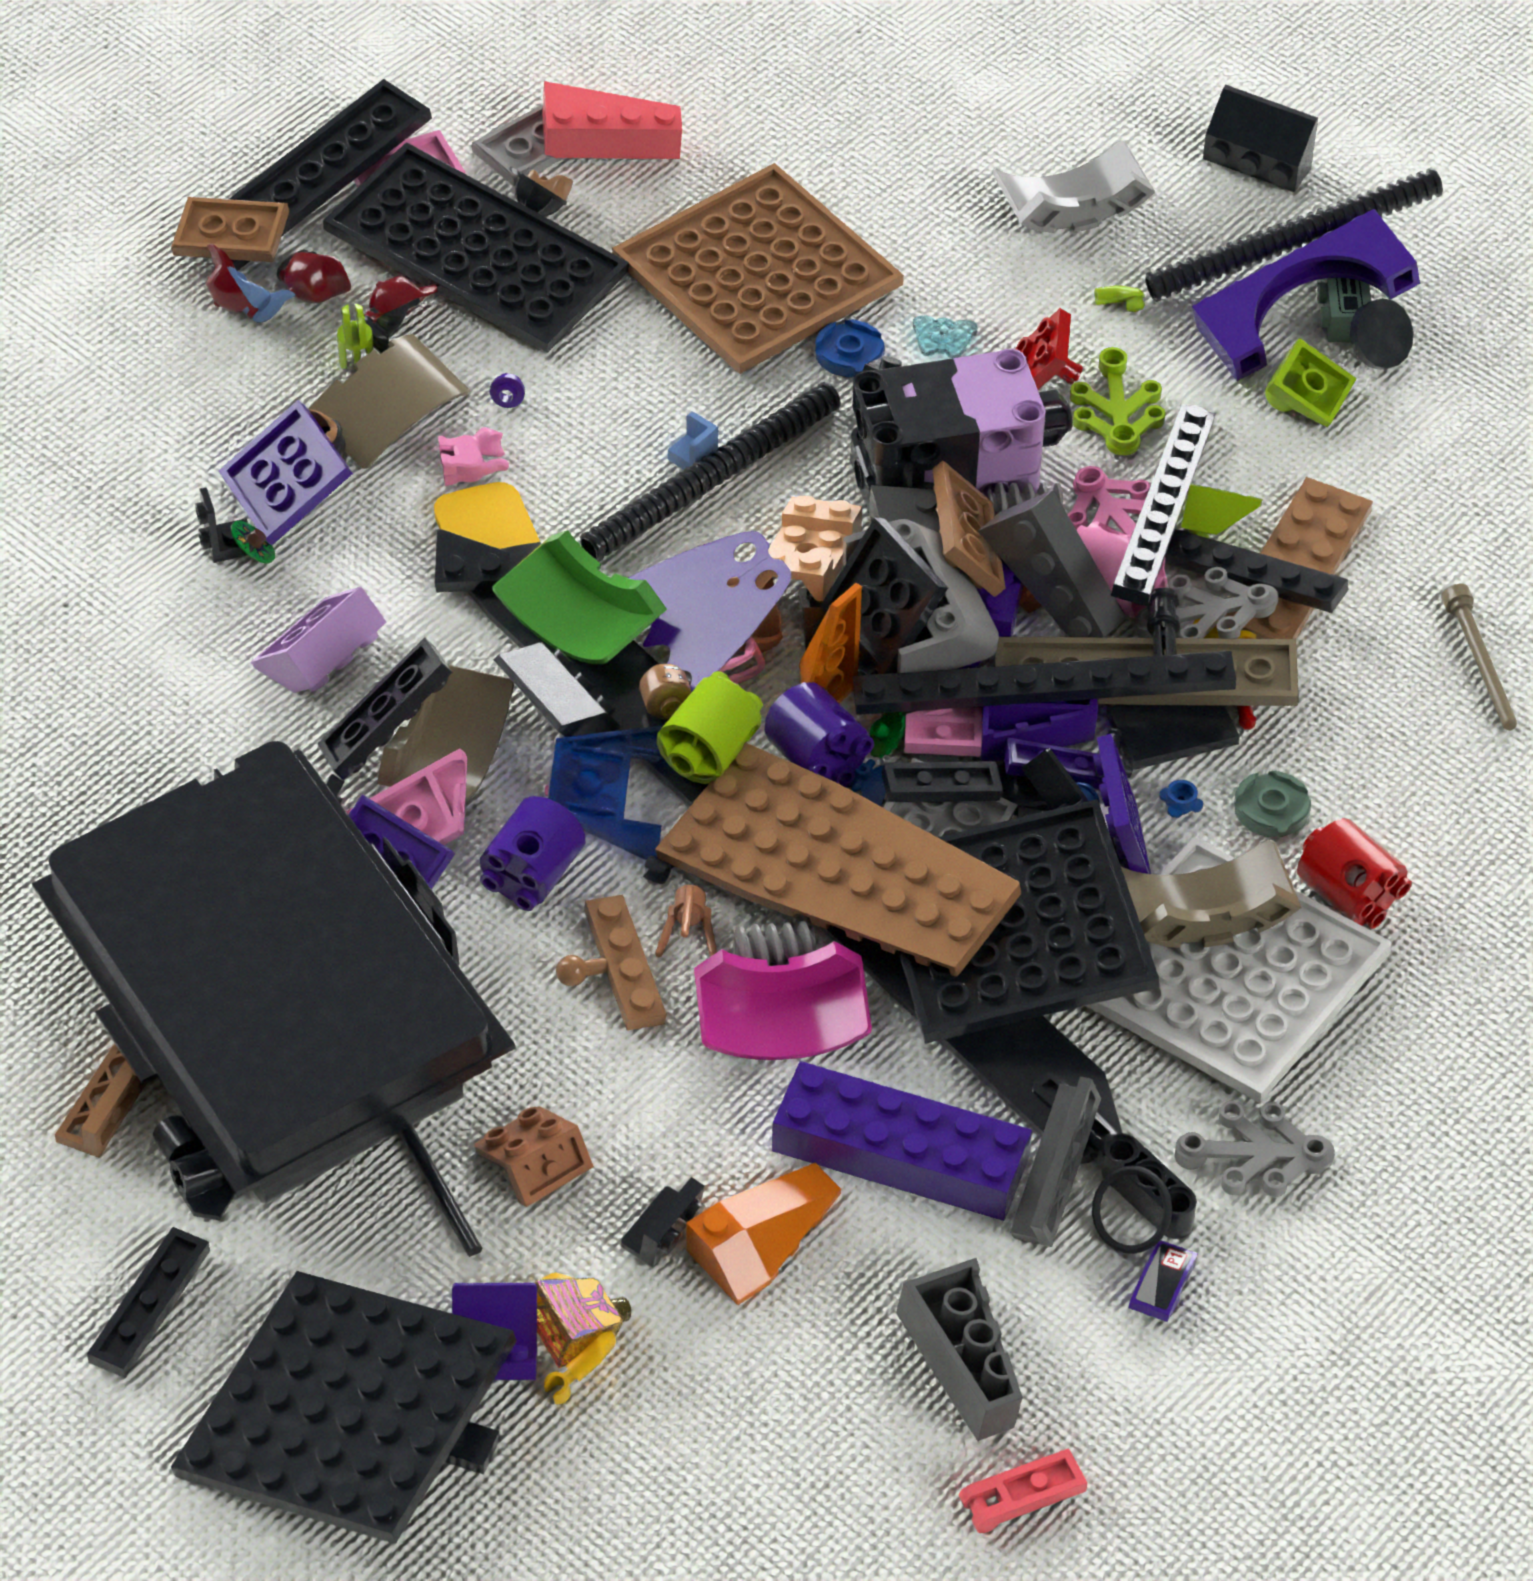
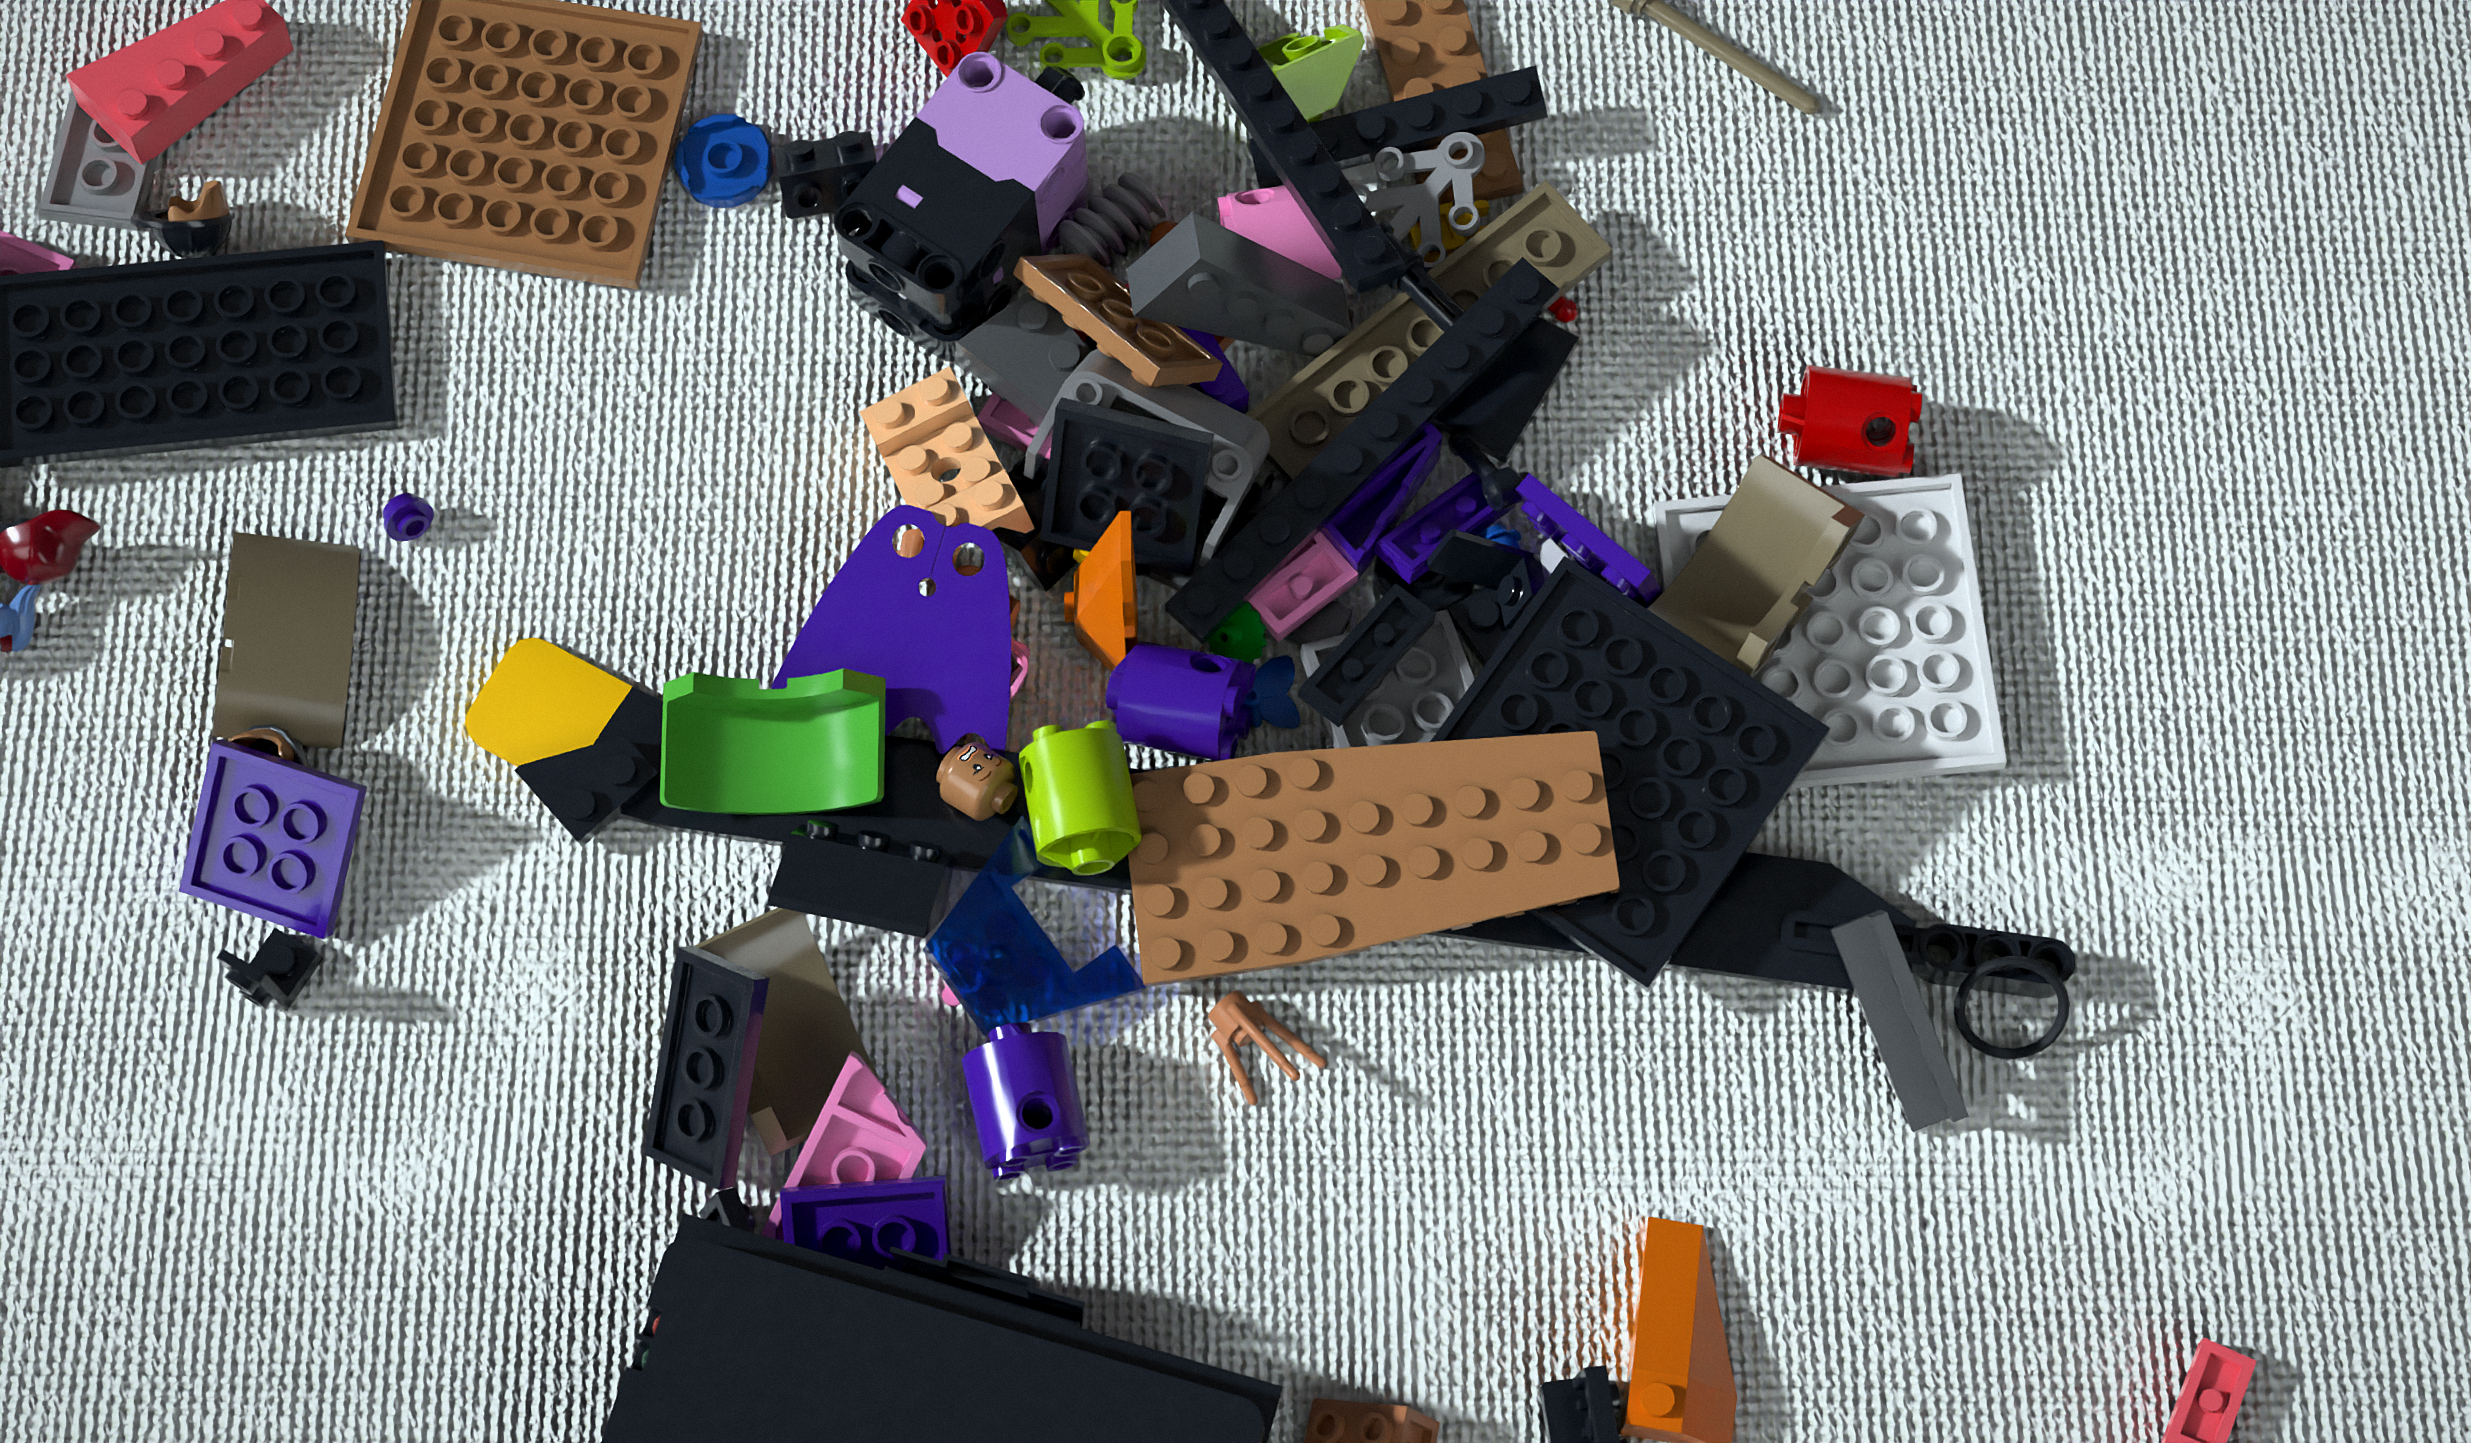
camera: 40 degrees left, 20 degrees up
(252, 542) = (316, 956): piece -> none
(321, 641) = (519, 1021): lavender slope -> none
(353, 336) = (174, 593): lime arm -> none
(389, 307) = (172, 516): hair -> none
(463, 456) = (440, 637): bright pink animal -> none
(622, 962) = (1229, 1147): medium nougat plate -> none
(658, 870) = (1157, 1001): black hand -> none
(698, 442) = (684, 425): medium blue panel -> none
(710, 471) = (733, 447): black piece -> none
(772, 945) = (1376, 997): light grey piece -> none
(782, 1009) = (1455, 1064): dark pink panel -> none
(901, 1140) = (1718, 1121): dark purple brick -> none
(943, 335) = (791, 73): clear light blue animal -> none
(962, 1344) = (2008, 1314): dark grey wedge -> none
(1094, 484) = (1195, 154): bright pink plant -> none
(1163, 1280) = (2104, 1059): slope -> none
(1181, 798) = (1594, 449): blue plate -> none
(1259, 1149) = (2050, 821): light grey plant -> none
(1272, 804) = (1679, 392): sand green tile -> none

